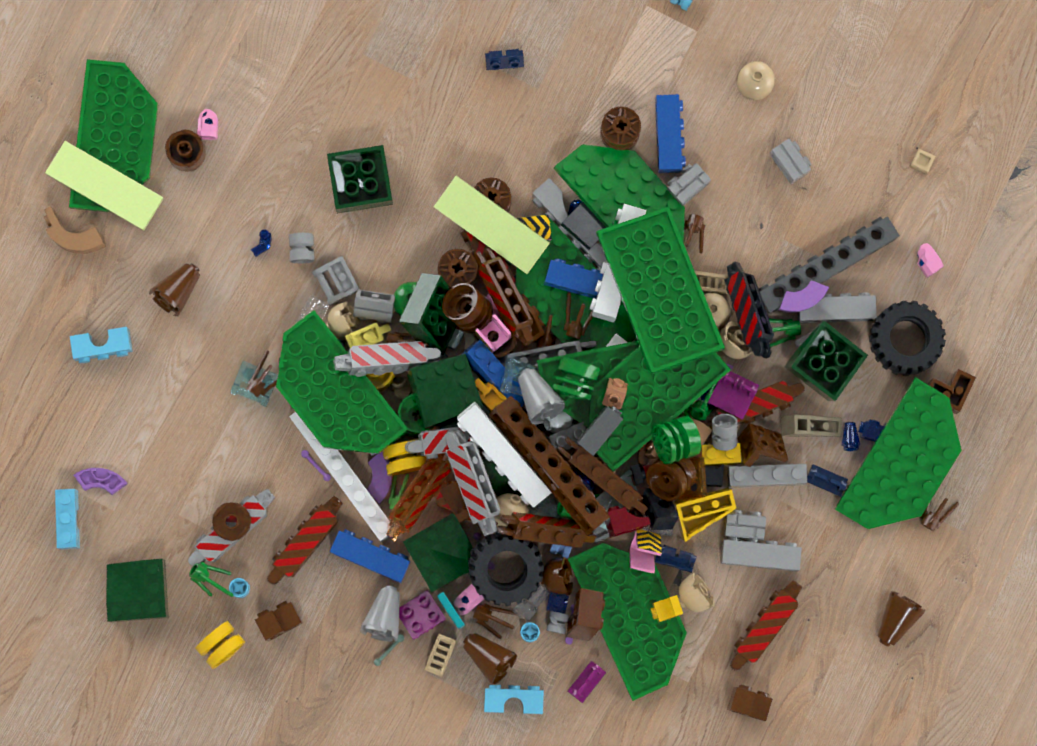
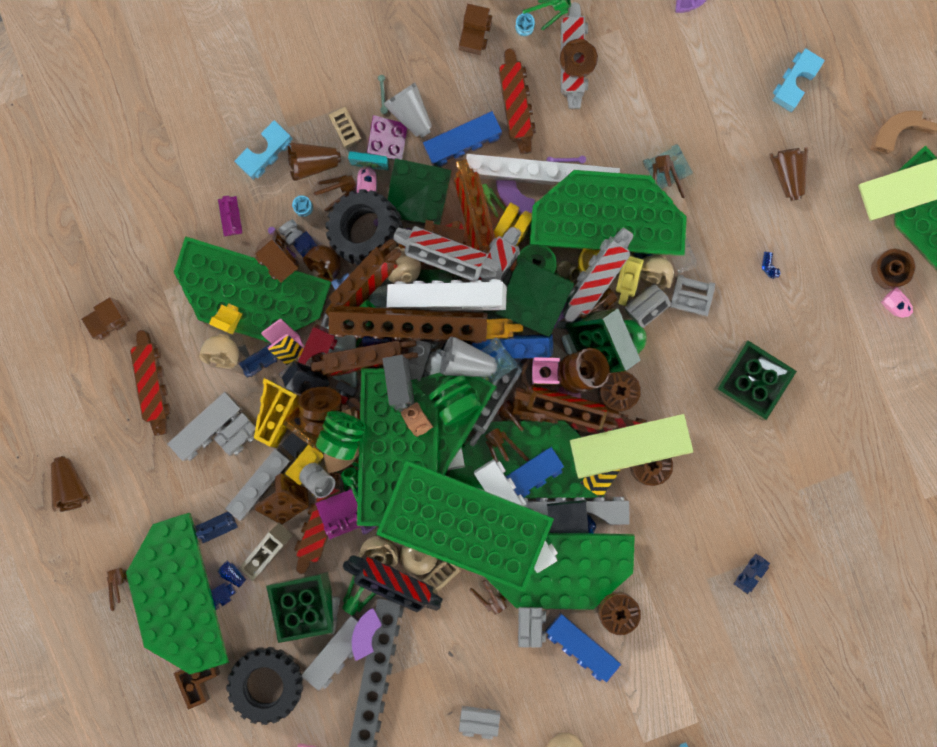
camera: 135 degrees right, 5 degrees up
(301, 248) = (740, 290): light grey wheel -> none
(529, 607) = (319, 220): clear piece -> none

